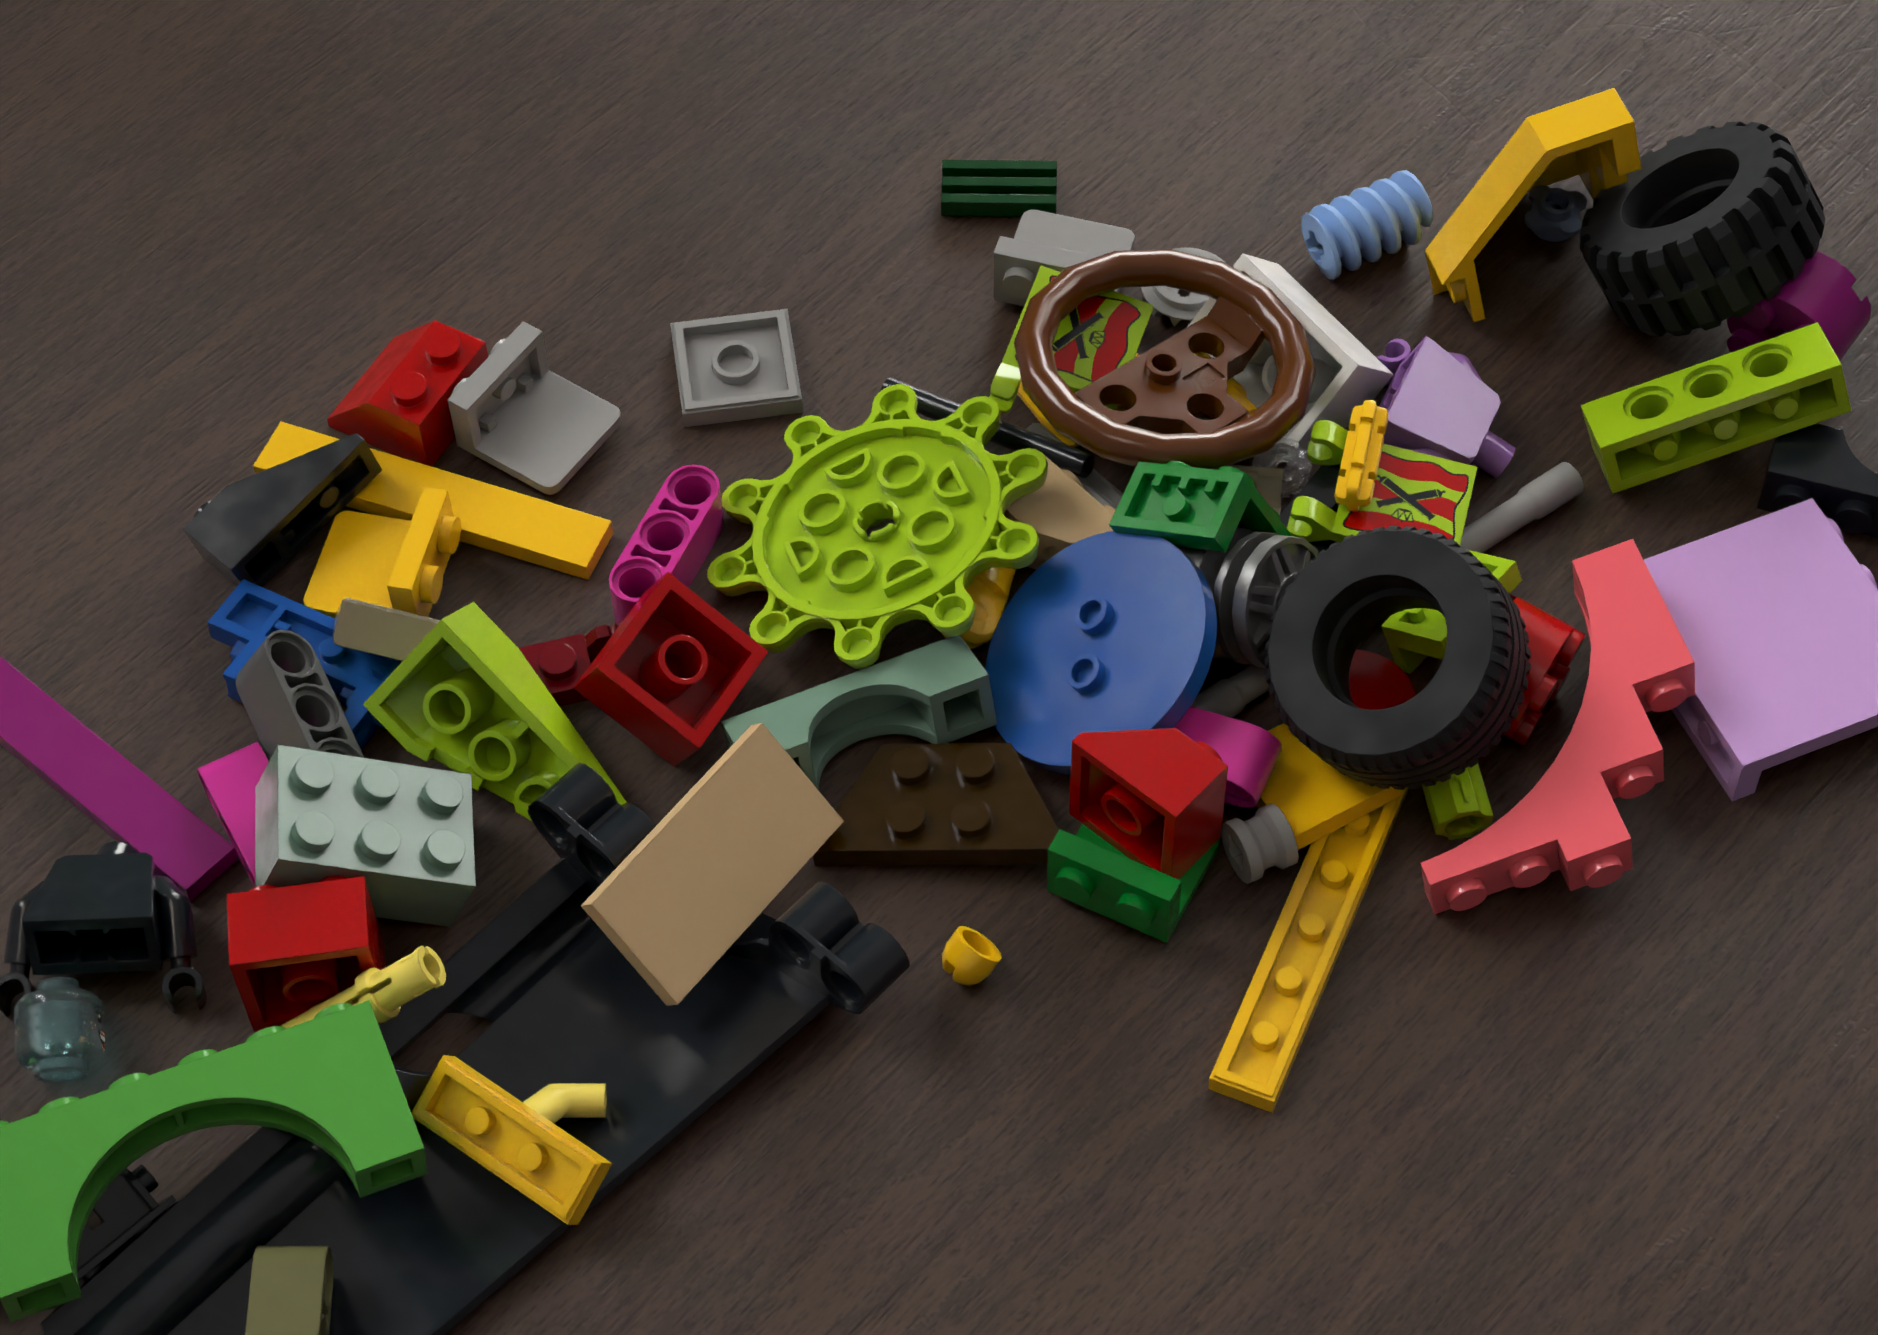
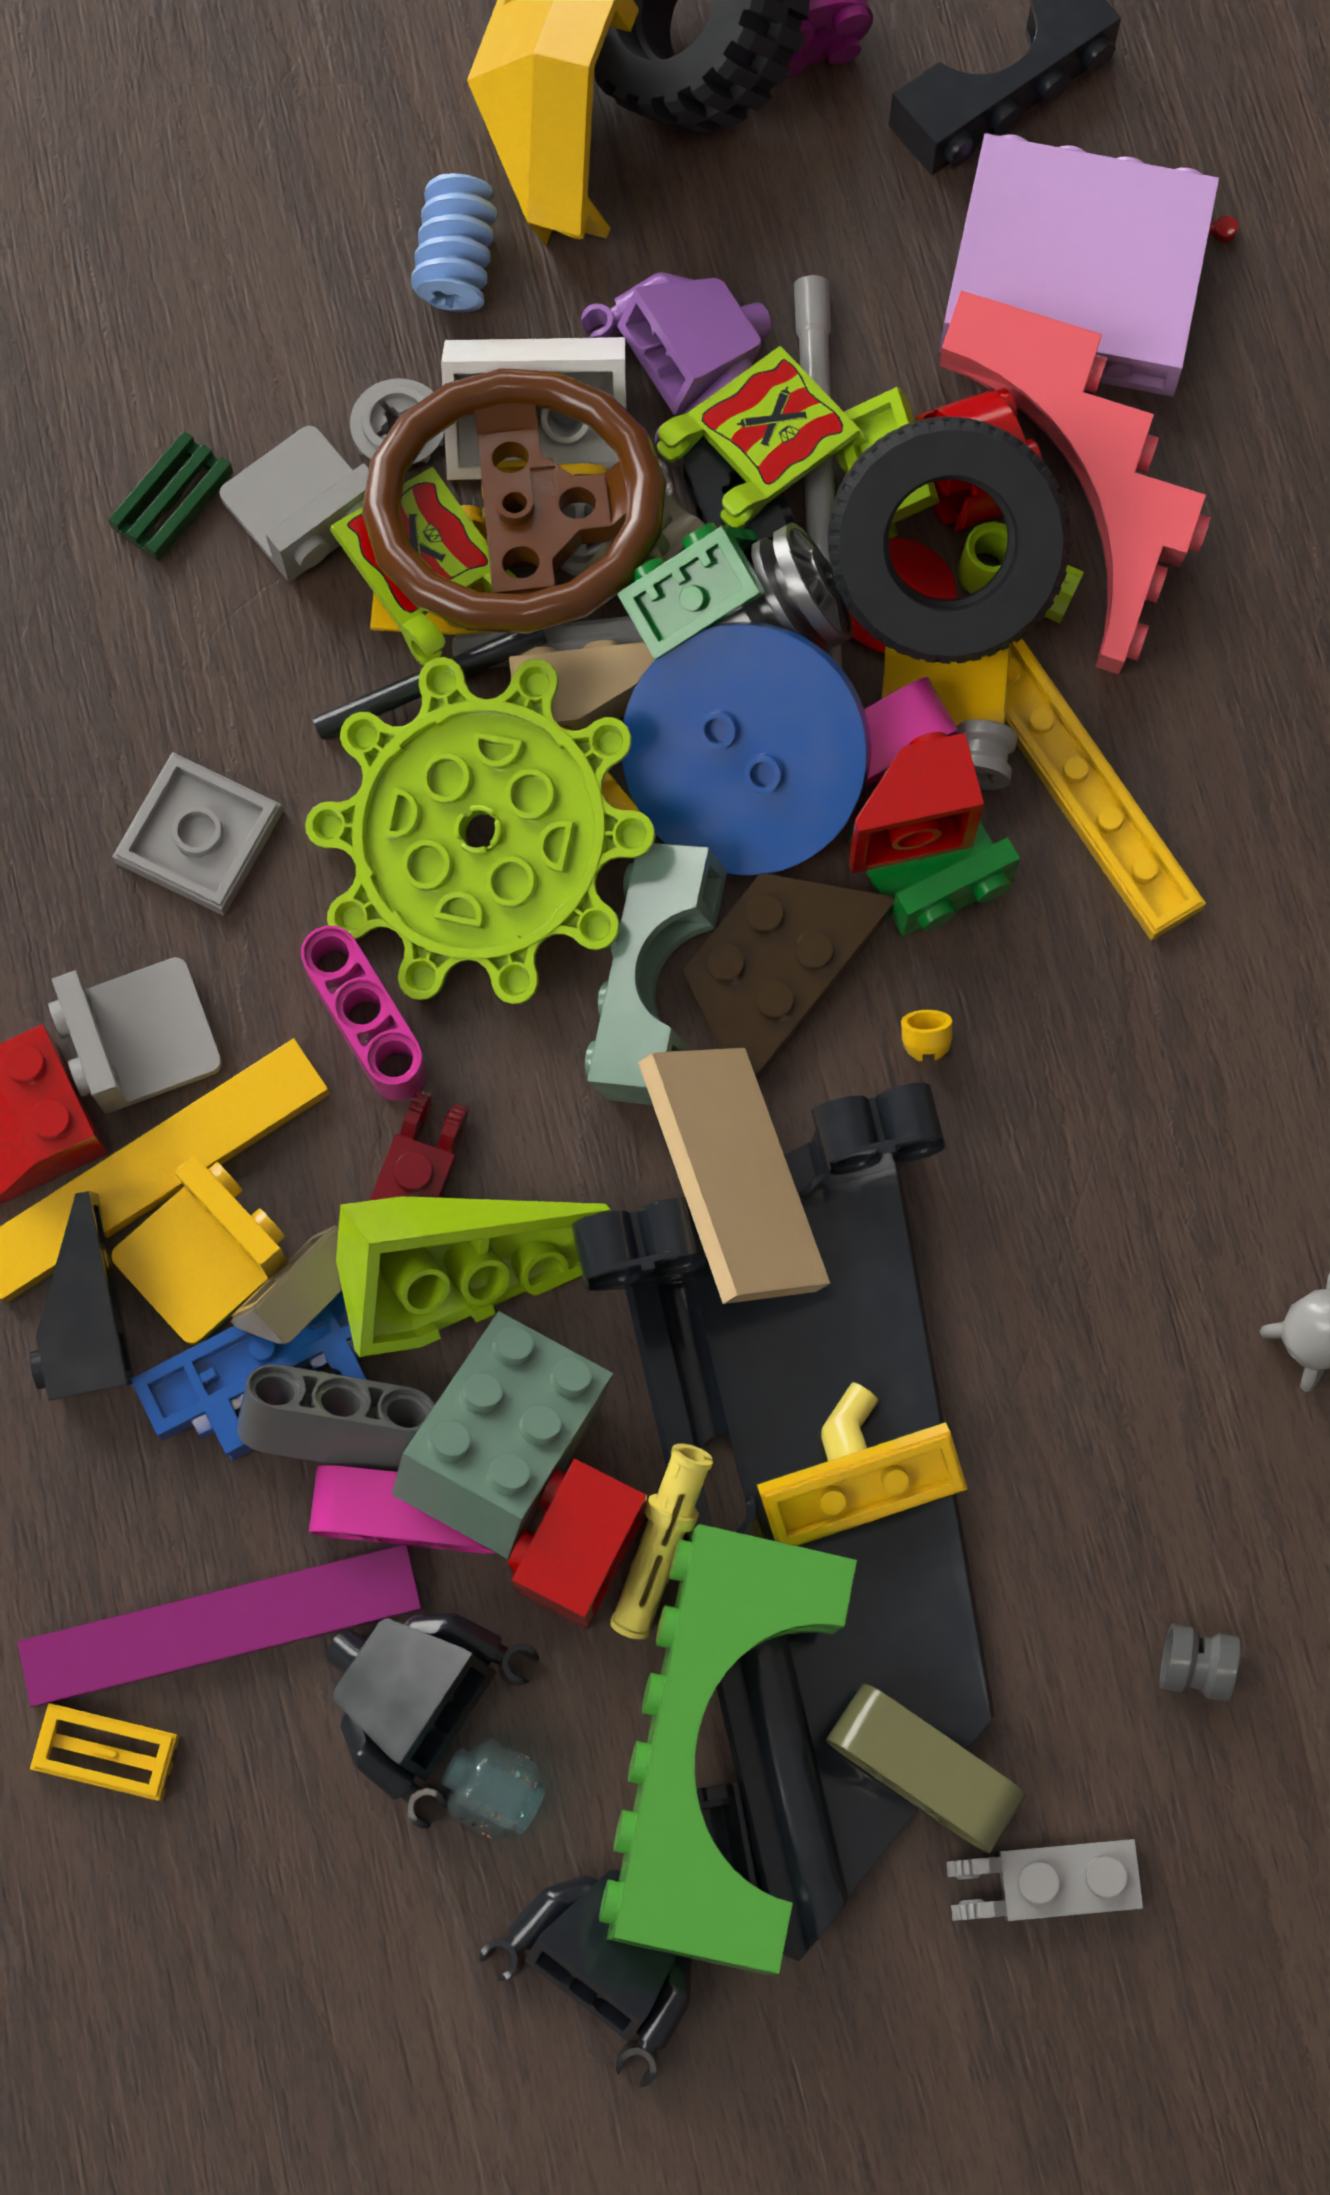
camera: 55 degrees left, 20 degrees up
(671, 670) = (509, 1087): red brick -> none
(1361, 456) = (720, 422): yellow axle -> none
(1716, 407) = (871, 42): lime brick -> none

